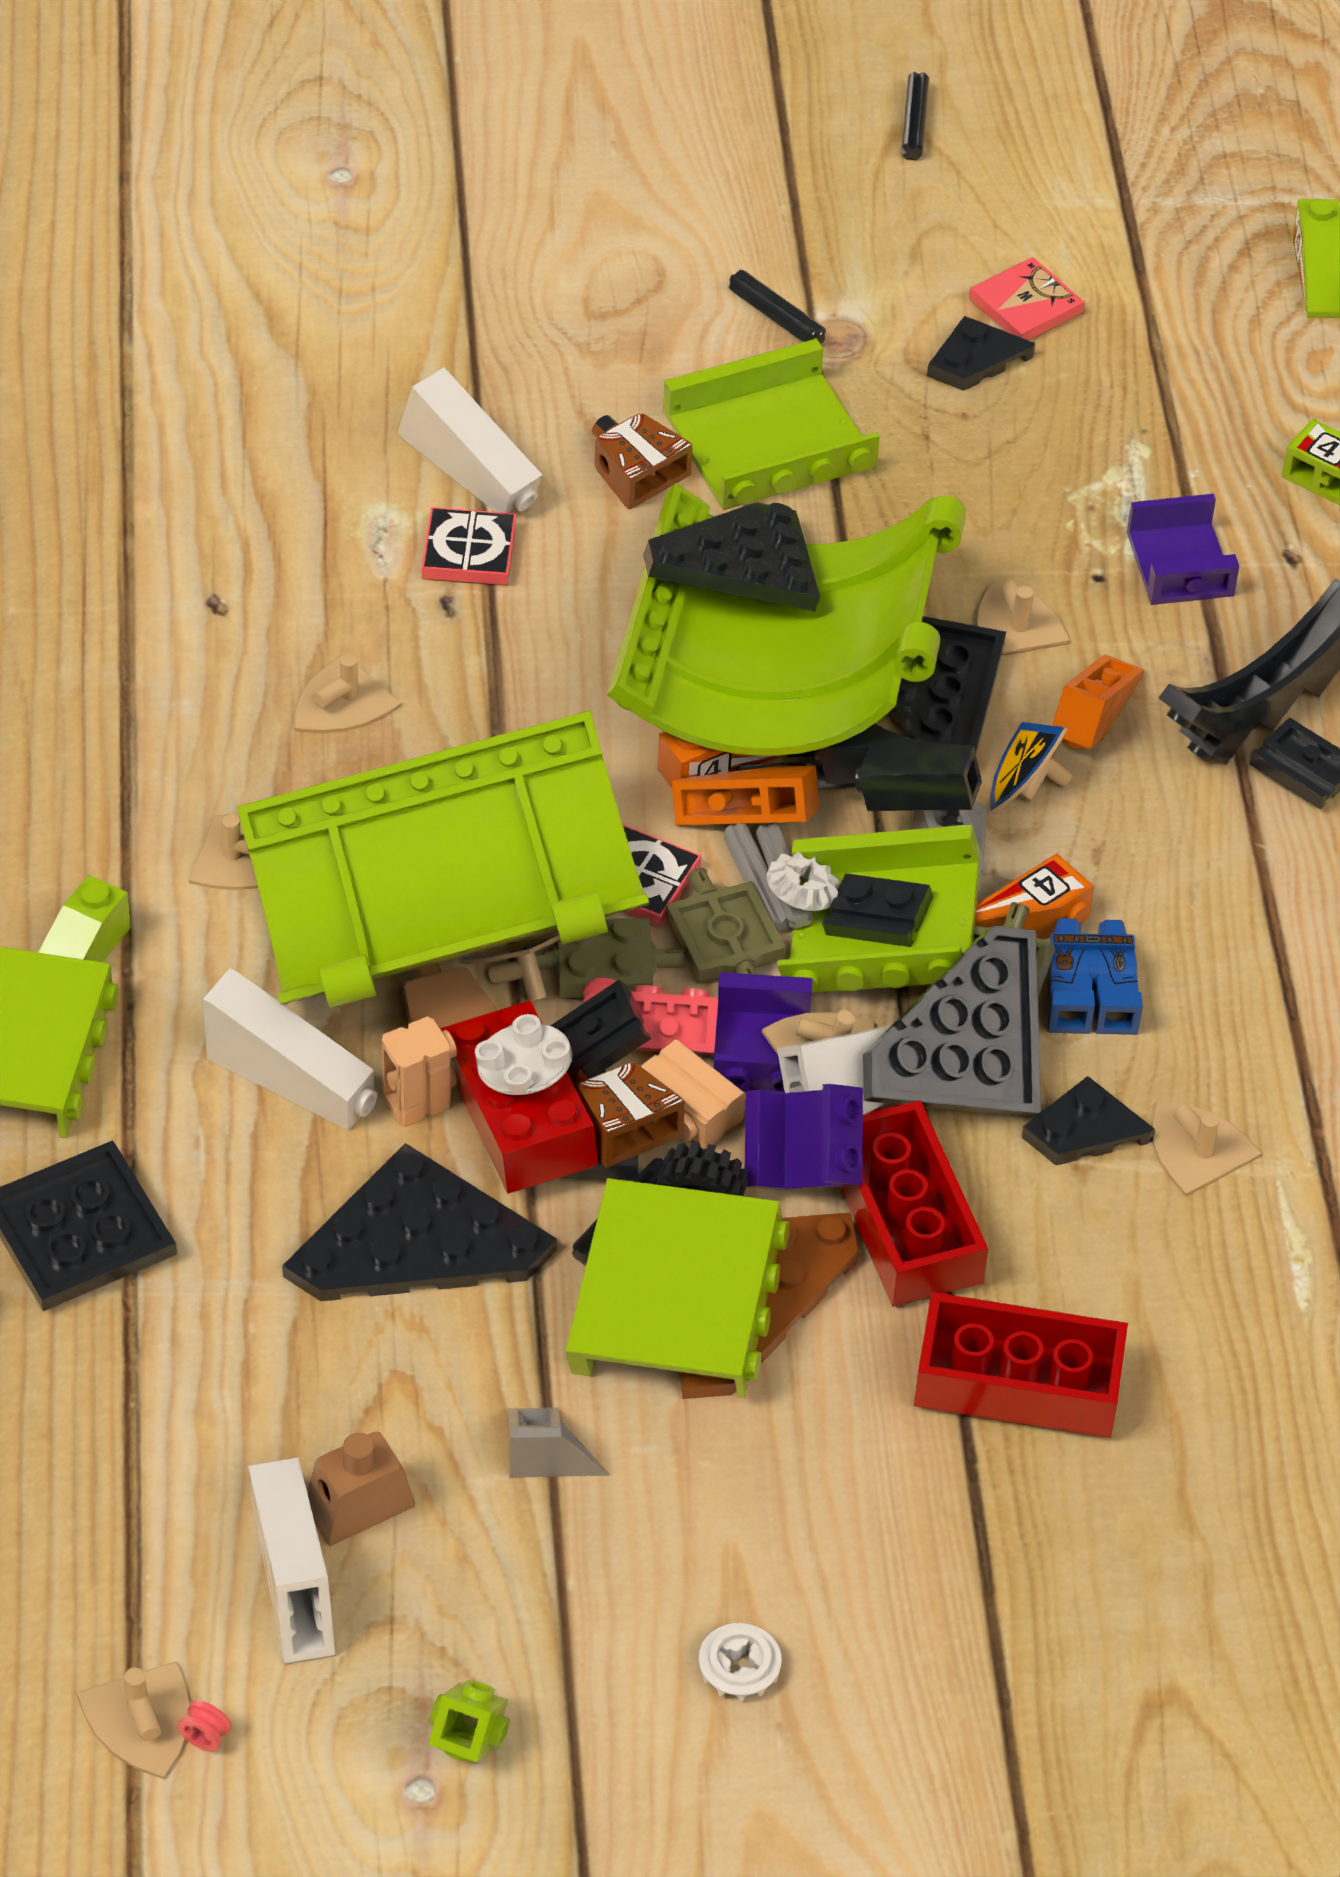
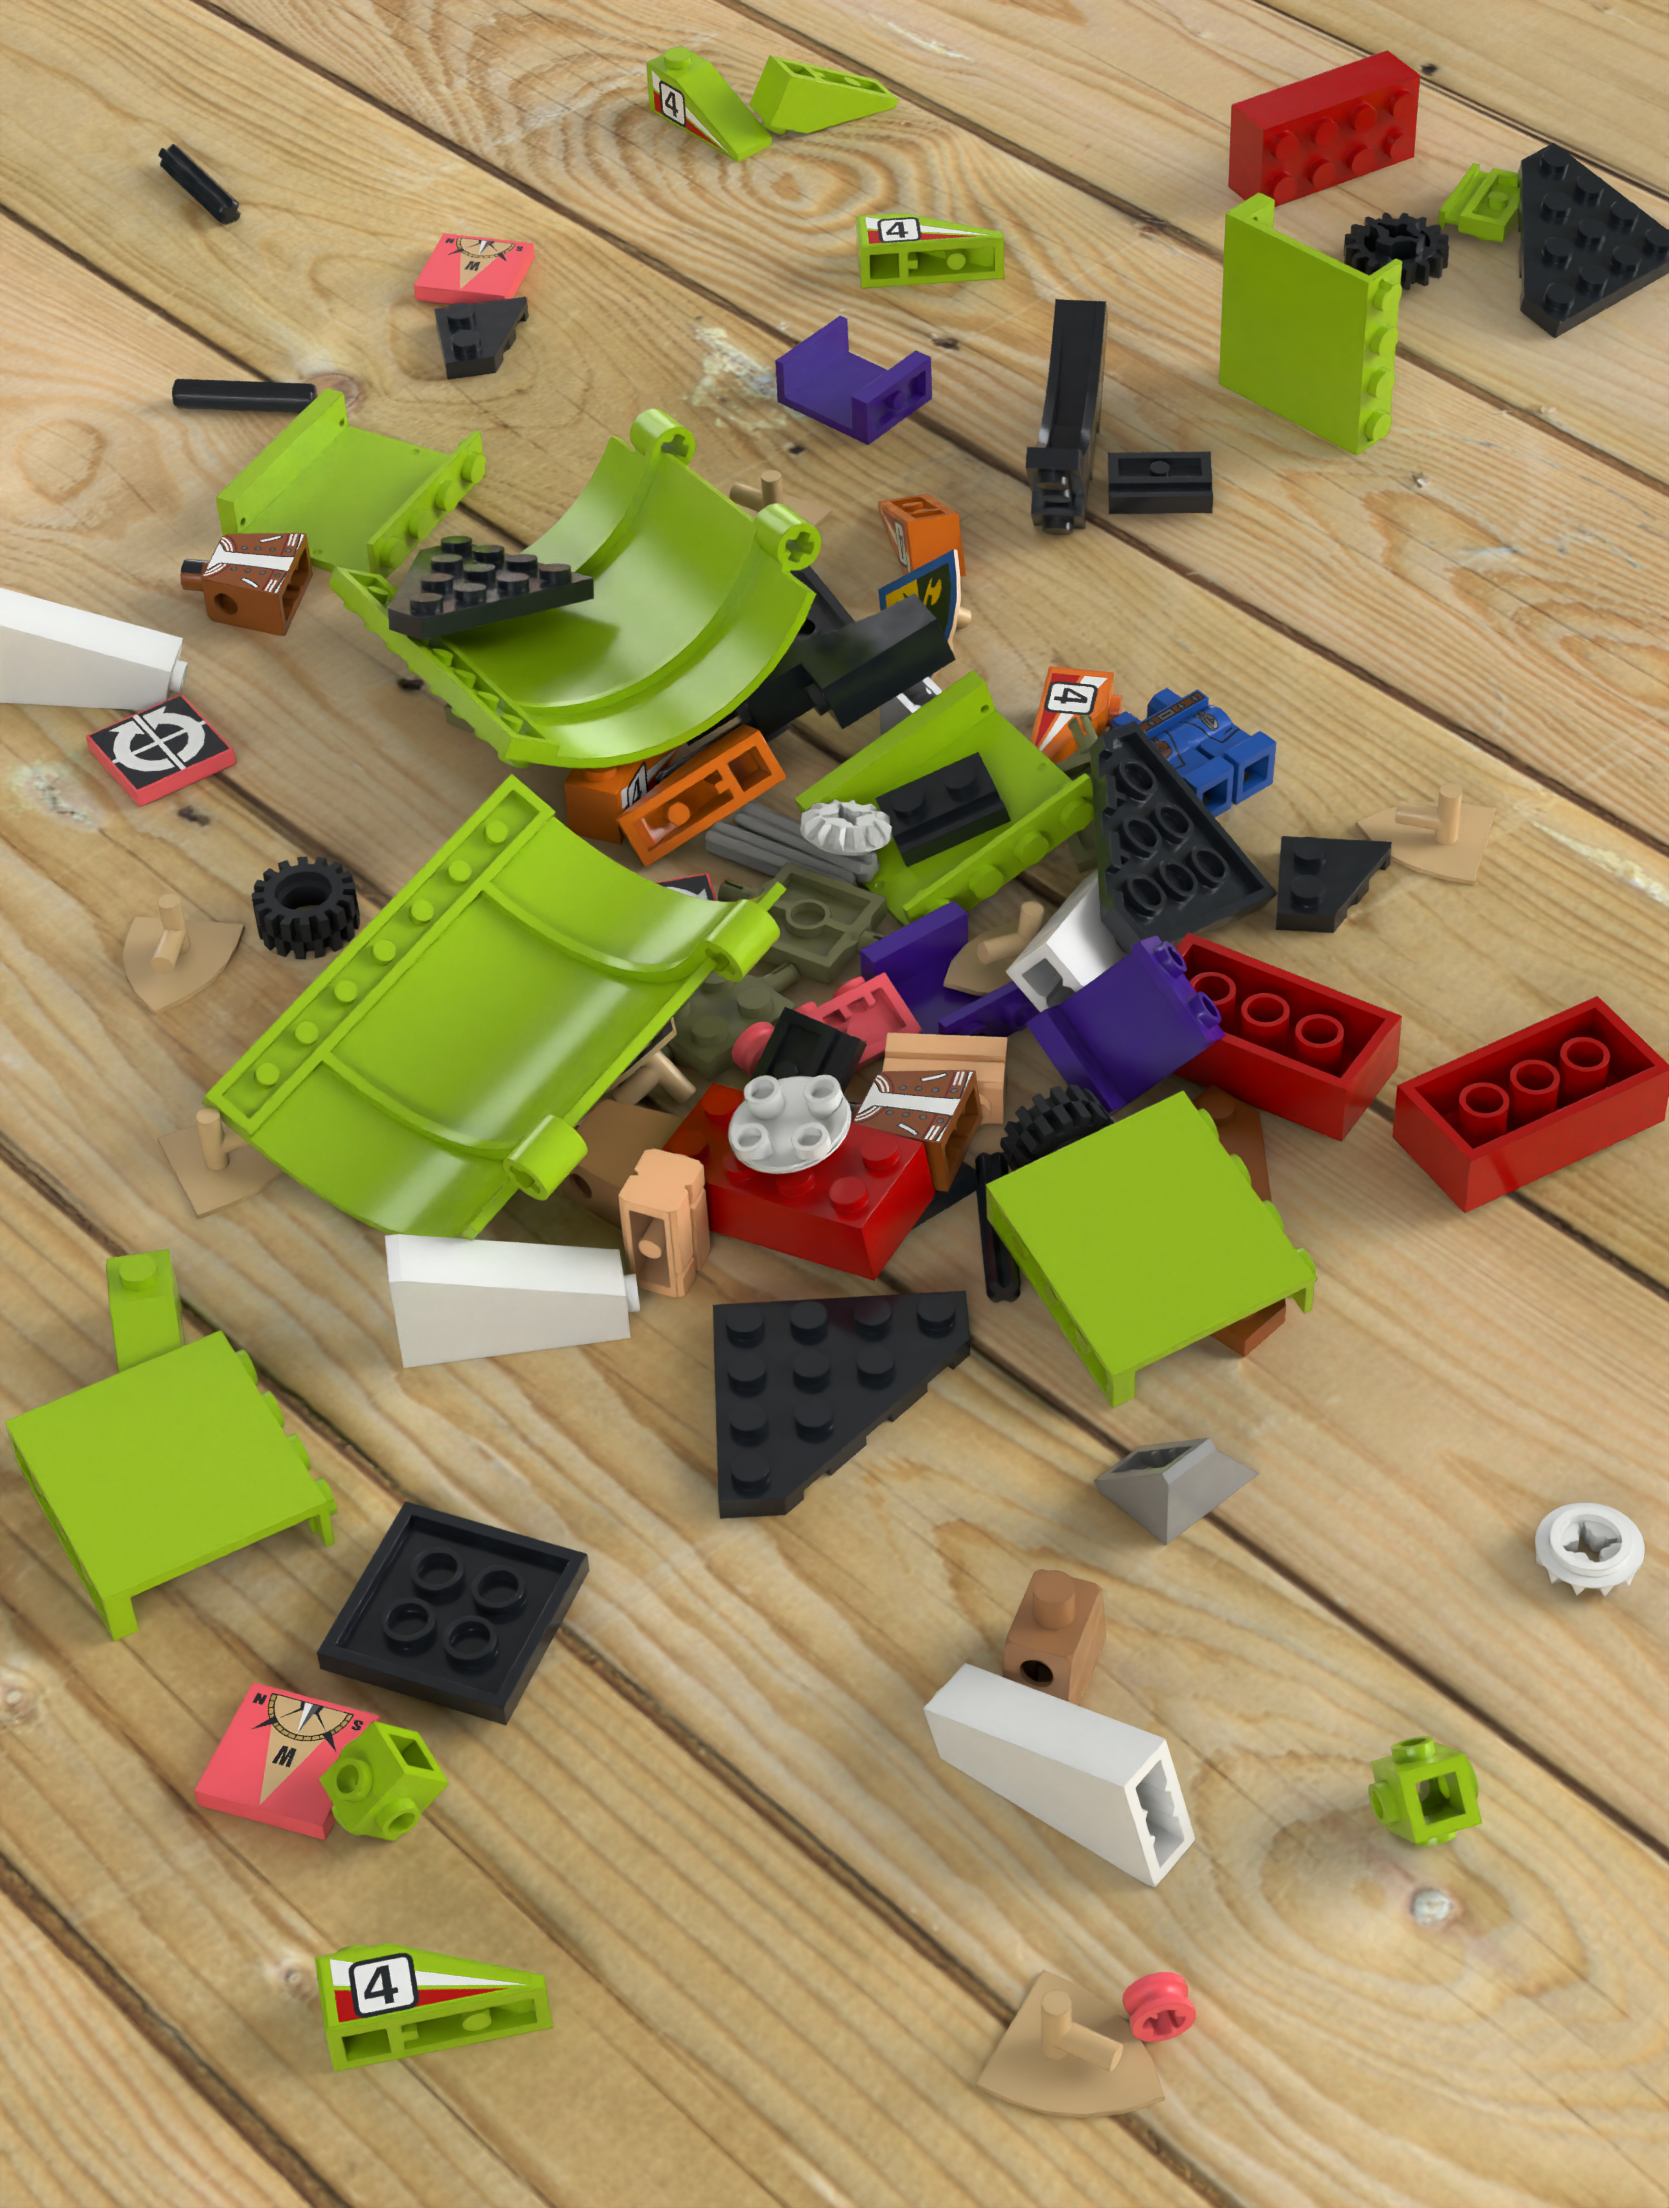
camera: 35 degrees left, 5 degrees down
(436, 698) = (302, 886): none -> black tyre

